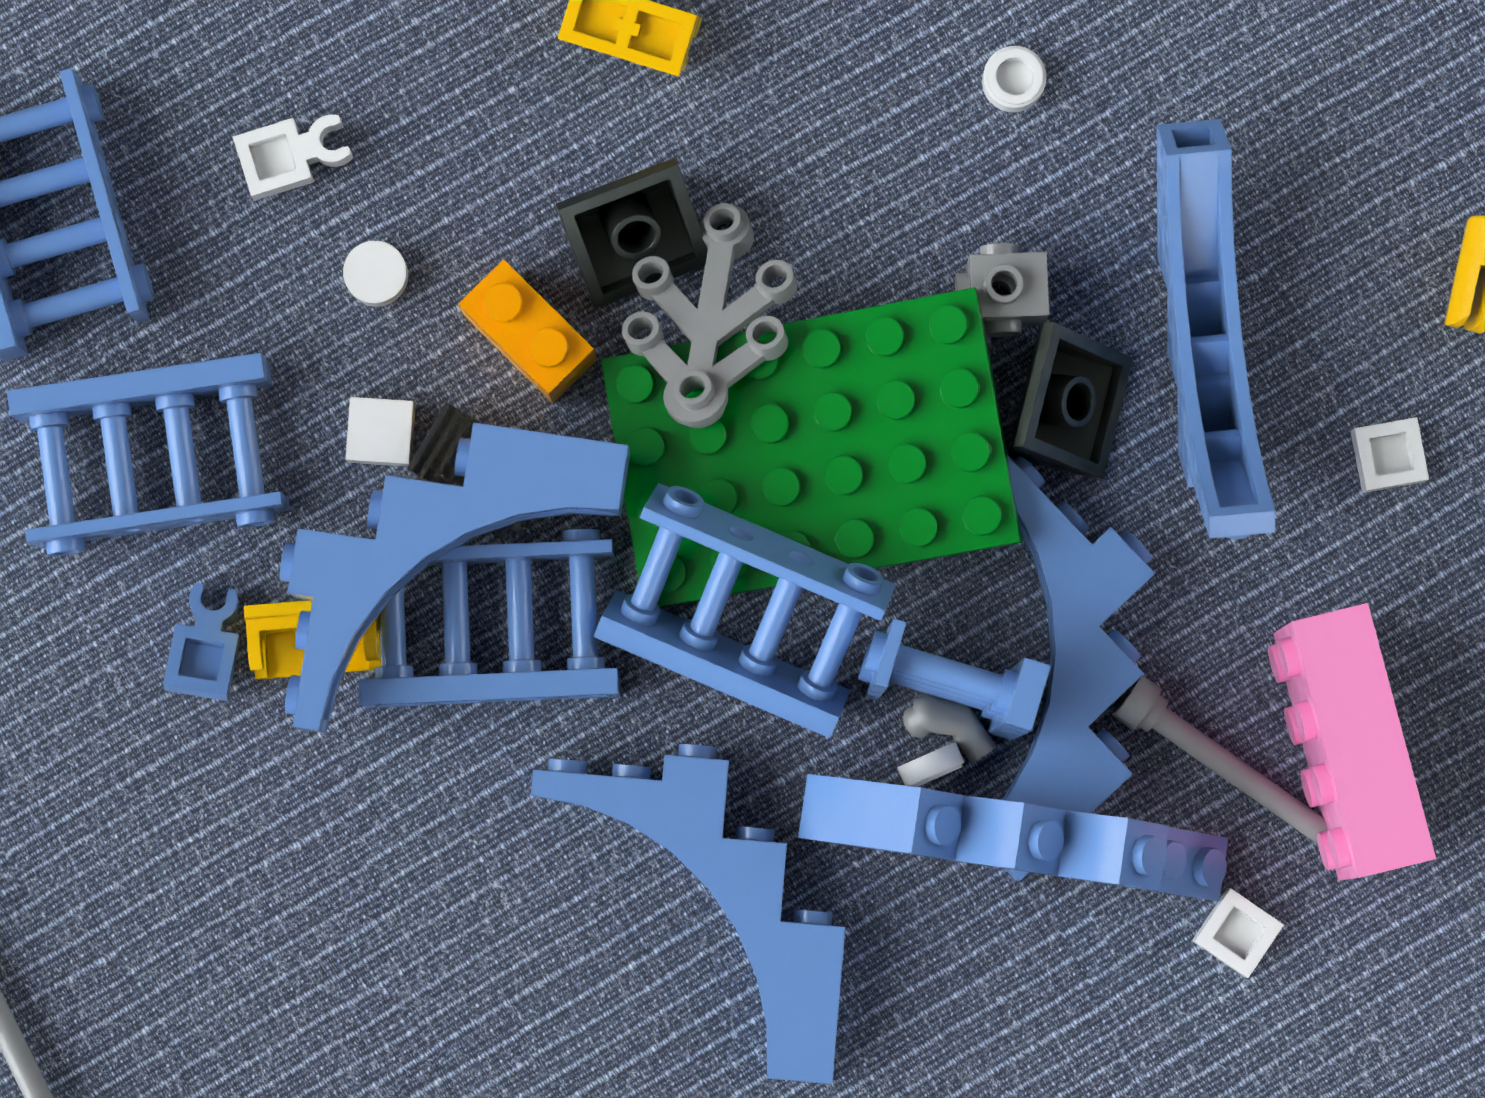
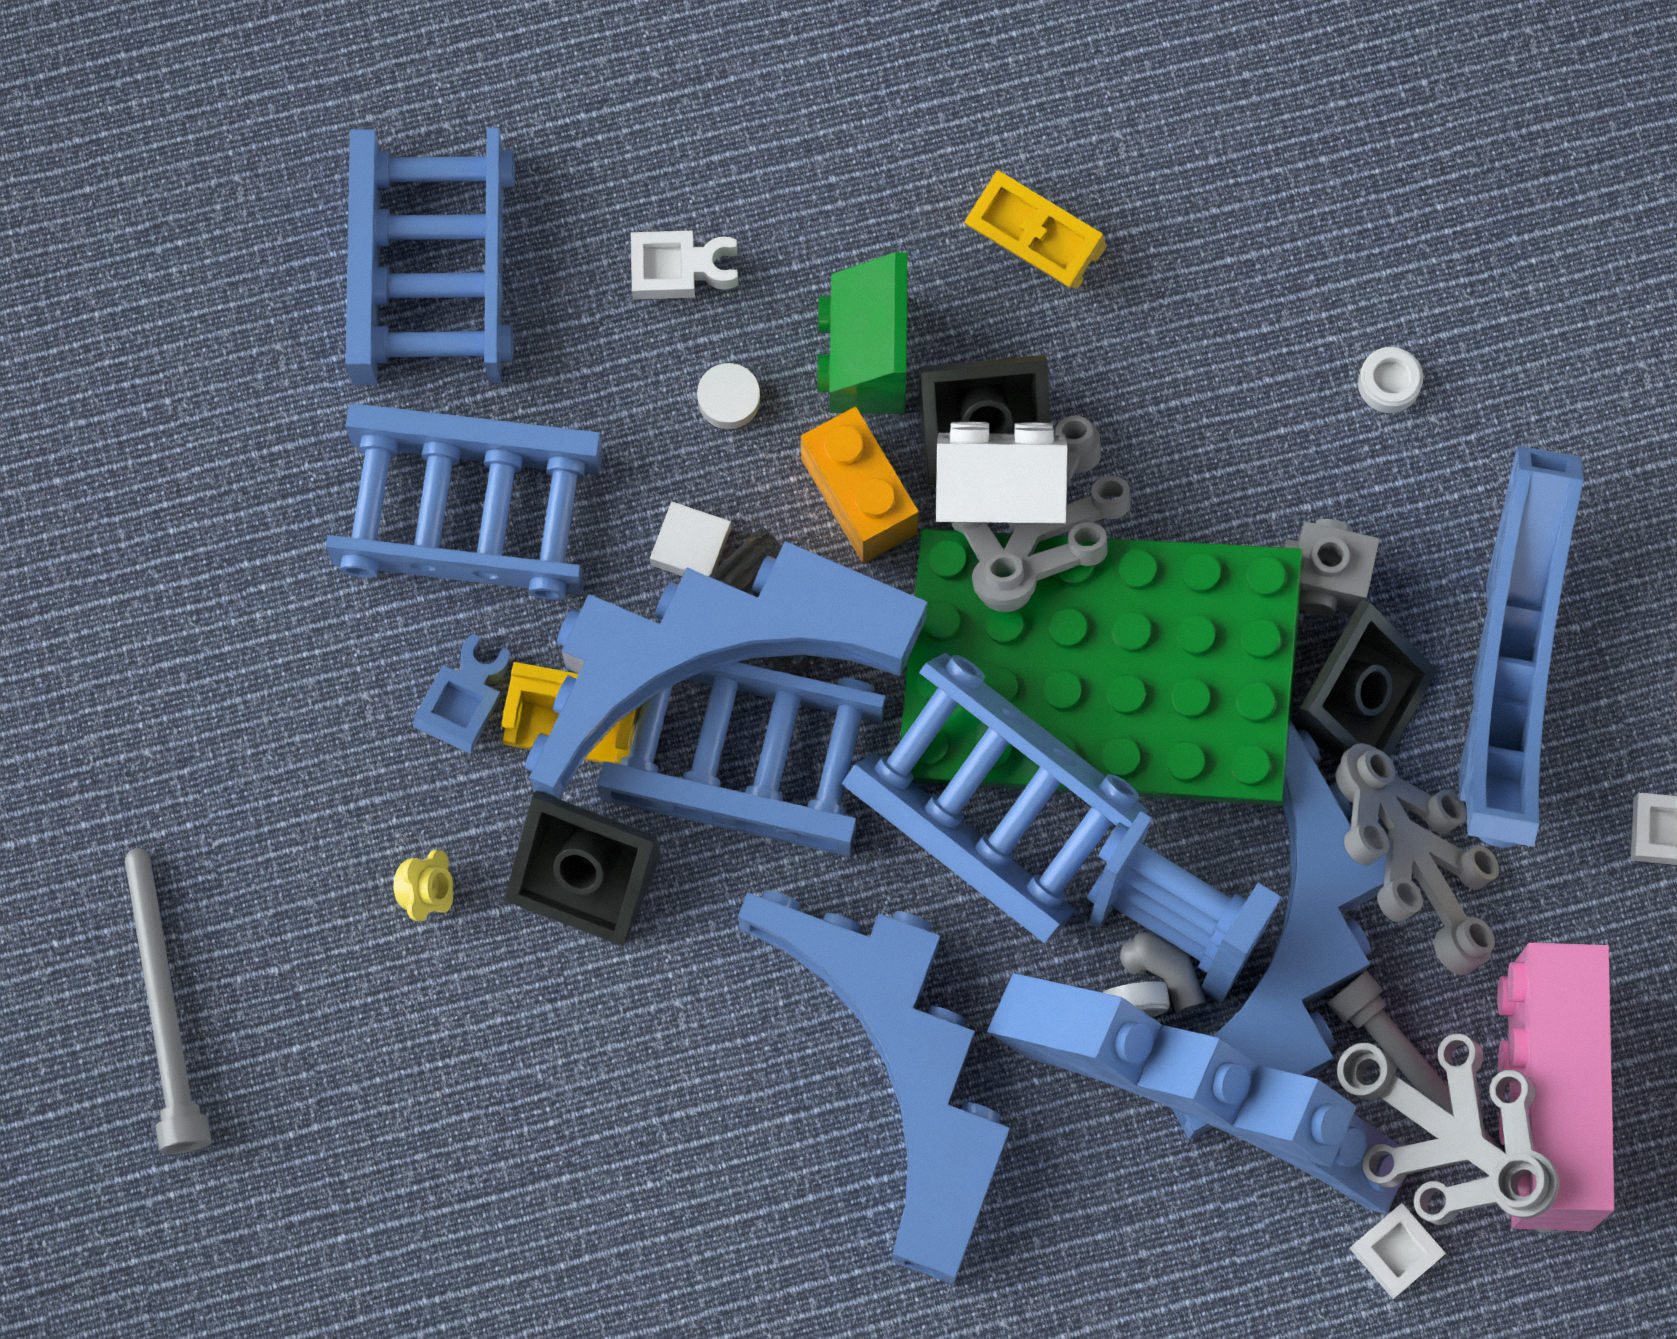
camera: 15 degrees right, 10 degrees down
(221, 843) = (424, 885): none -> light yellow plate
(367, 788) = (582, 868): none -> pearl dark grey slope
(494, 182) = (866, 337): none -> slope
(664, 293) = (1001, 474): none -> white slope
(1106, 500) = (1371, 784): none -> light grey plant
(1271, 824) = (1459, 1135): none -> plant

